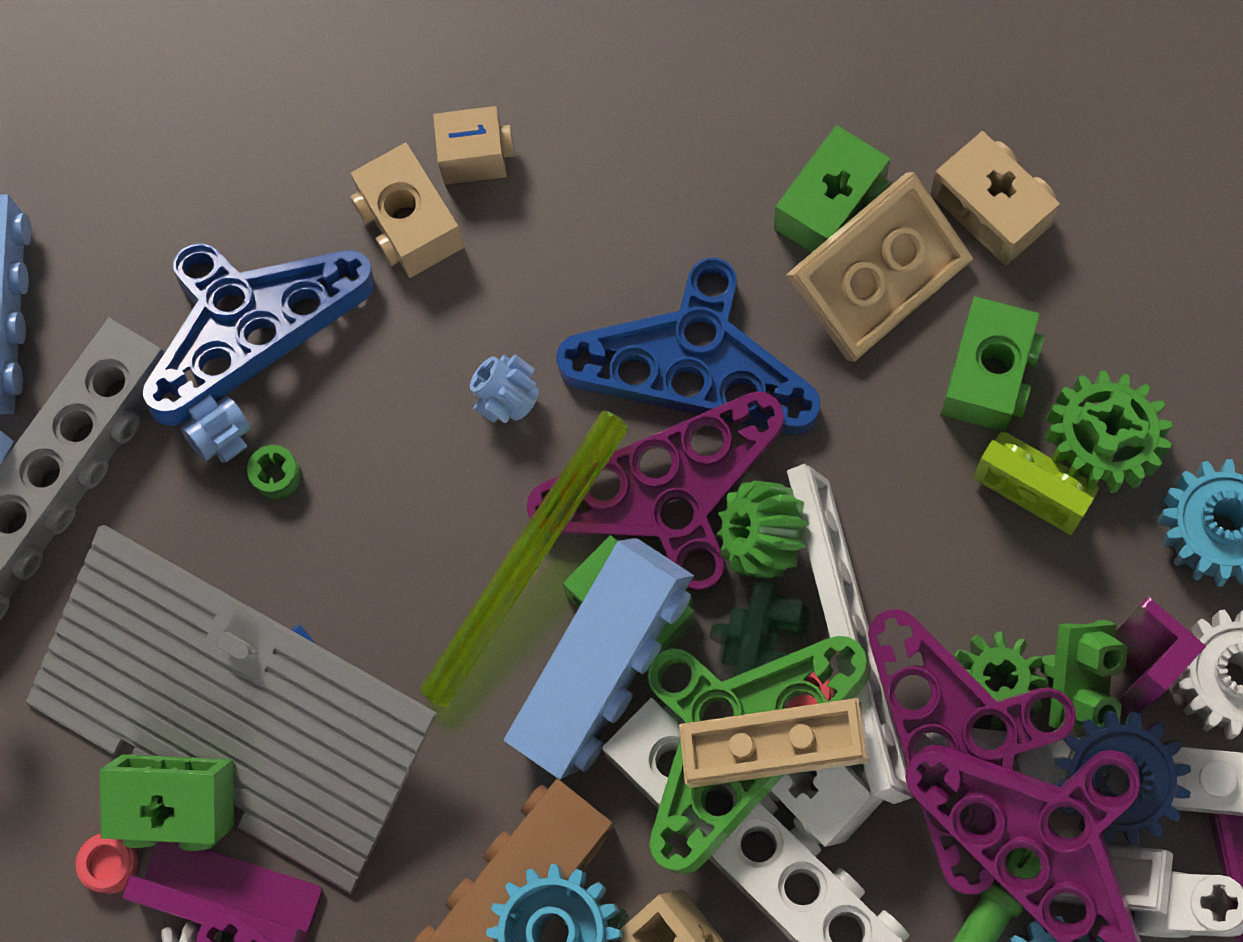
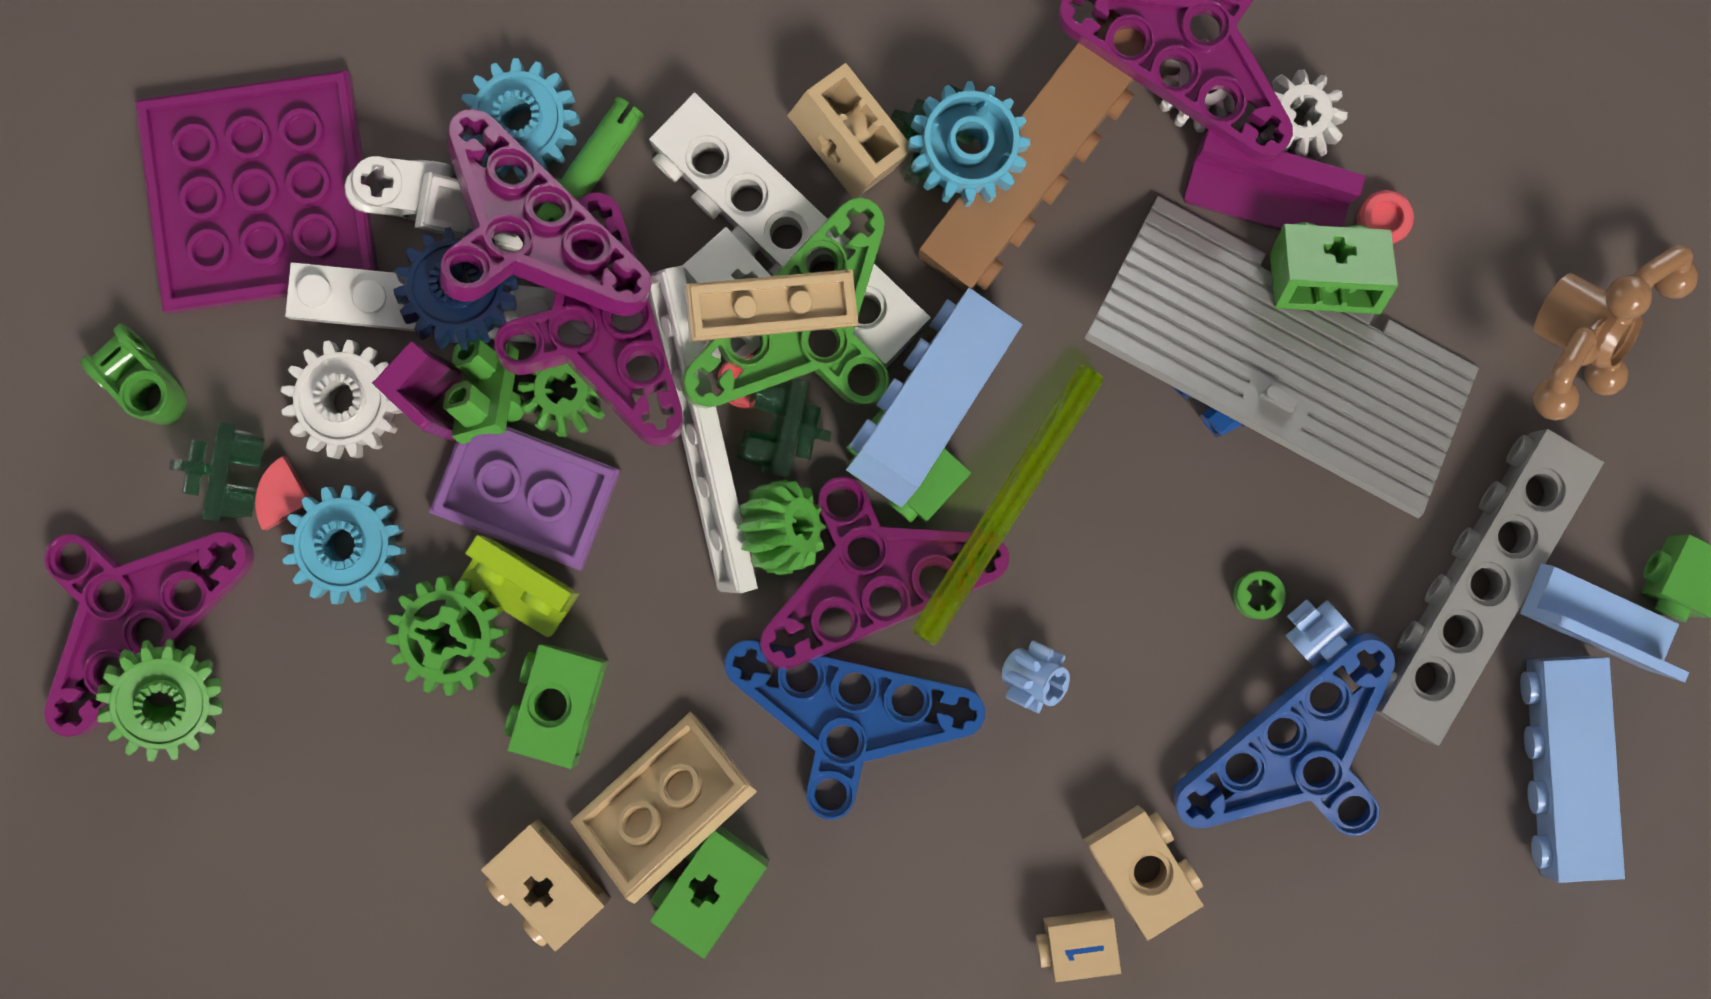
camera: 170 degrees right, 15 degrees up
(1030, 576) = (527, 494): none -> medium lavender tile

